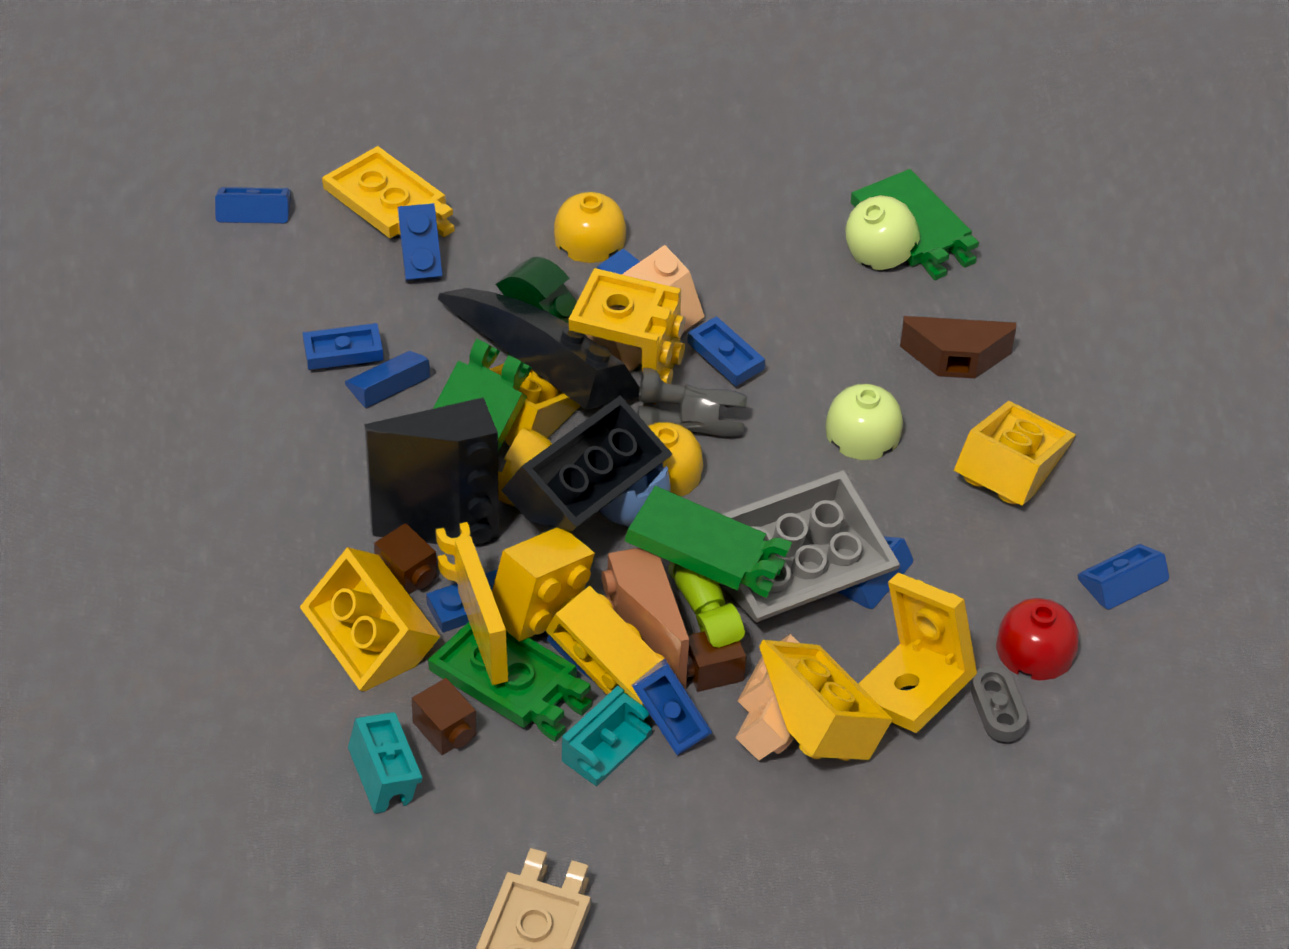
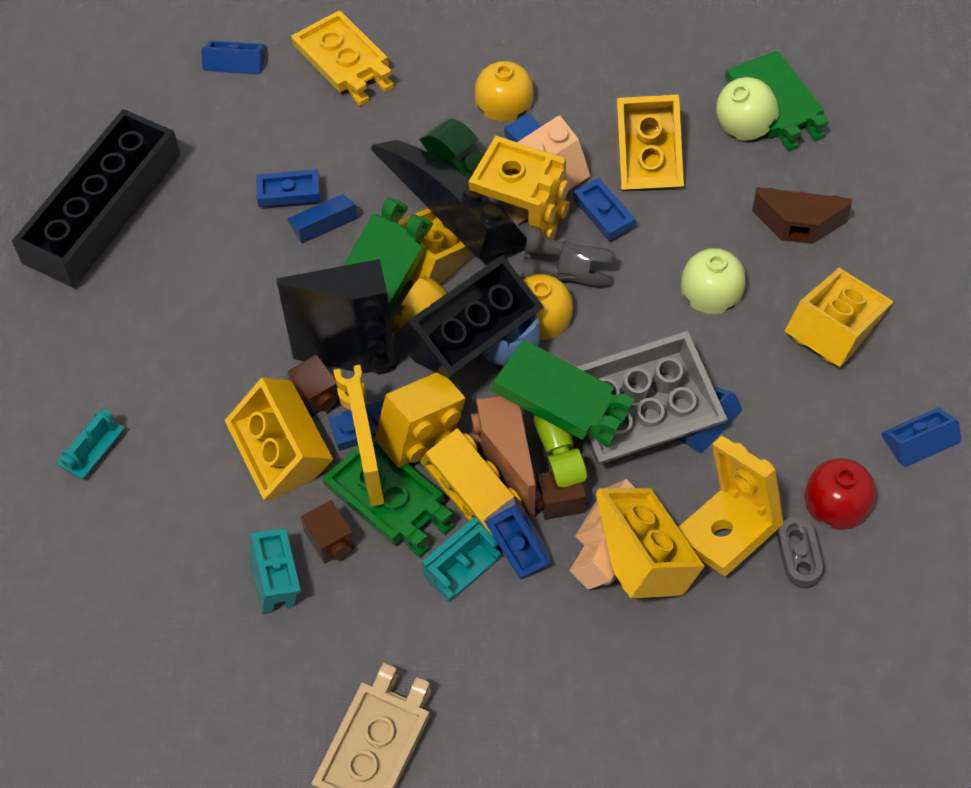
camera: 10 degrees right, 10 degrees up
(110, 367) = (96, 198): none -> black brick
(141, 640) = (91, 444): none -> teal hinge
(419, 242) = (361, 98): blue plate -> none
(771, 274) = (649, 142): none -> yellow slope

